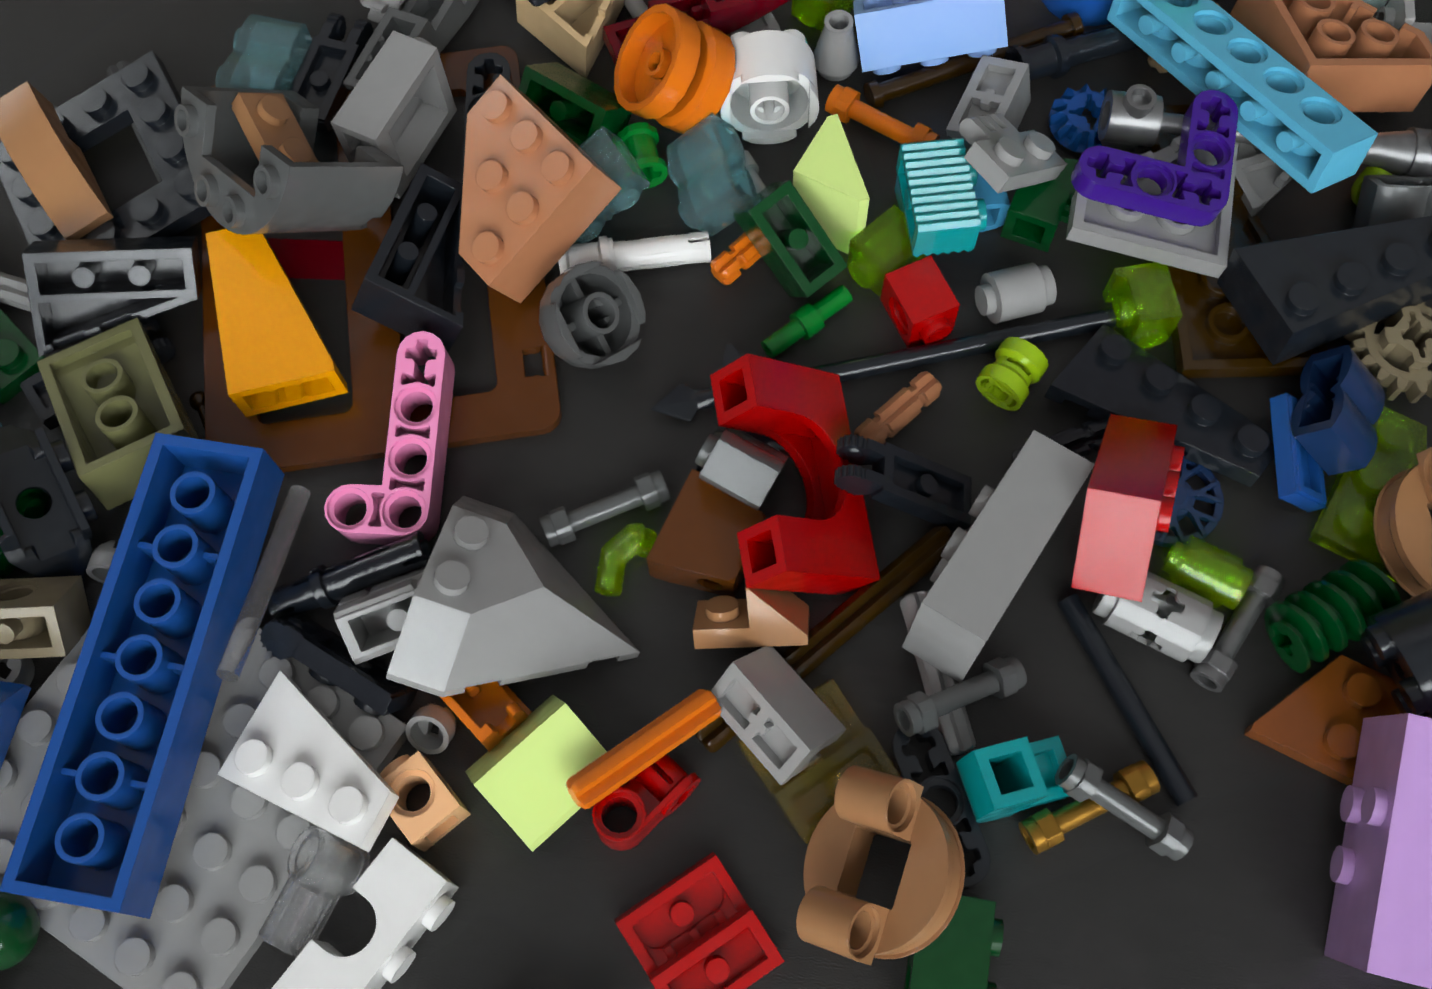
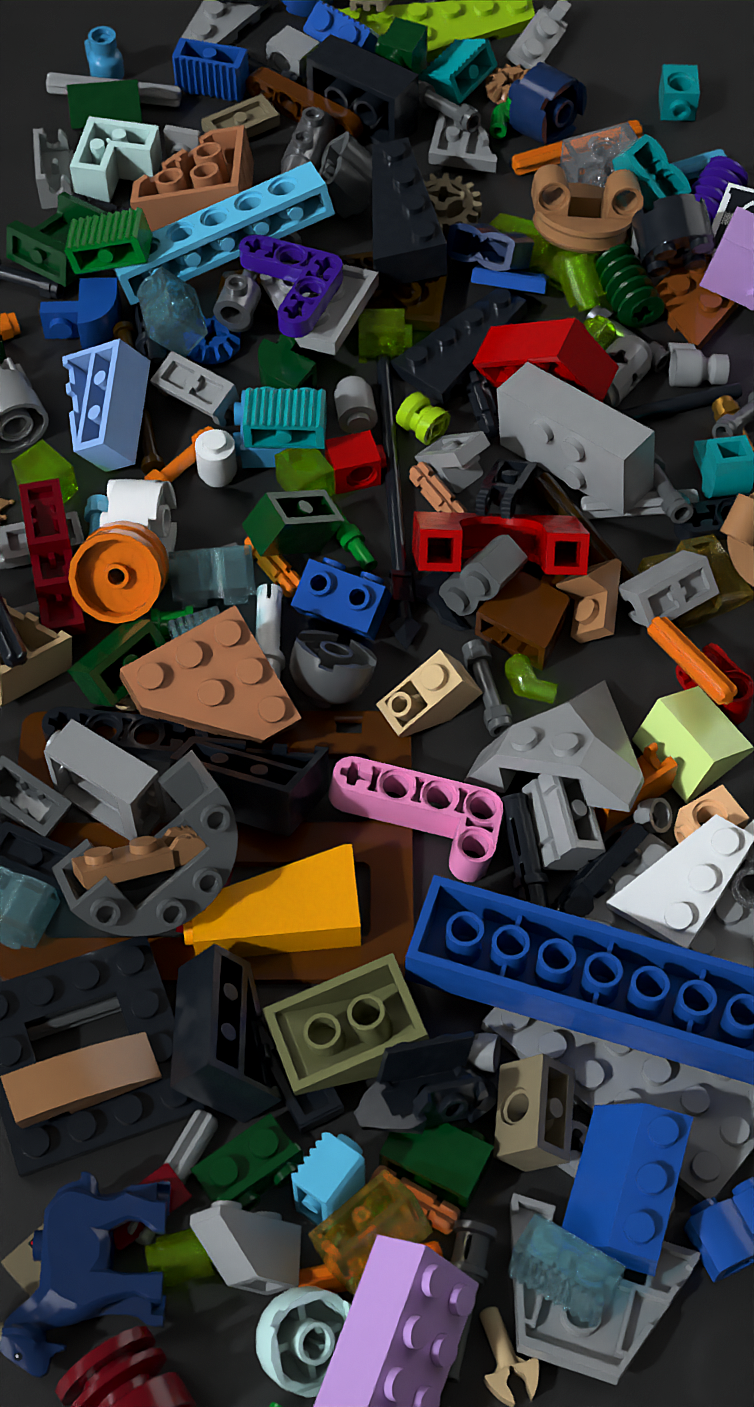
camera: 85 degrees left, 10 degrees down
(573, 439) = (429, 695): none -> tan slope
(696, 317) = (342, 598): none -> blue brick
(833, 184) = (243, 480): yellowish green slope -> none
(837, 49) = (103, 468): light grey cone -> none
(882, 145) = (216, 457): none -> white brick
(952, 421) = (456, 458): none -> light grey slope
(1007, 156) = (262, 364): light grey hinge -> none
(1094, 53) = (171, 312): none -> clear light blue brick
(1203, 722) = (690, 367): none -> light grey piece
(1314, 544) = (580, 282): none -> clear neon green brick

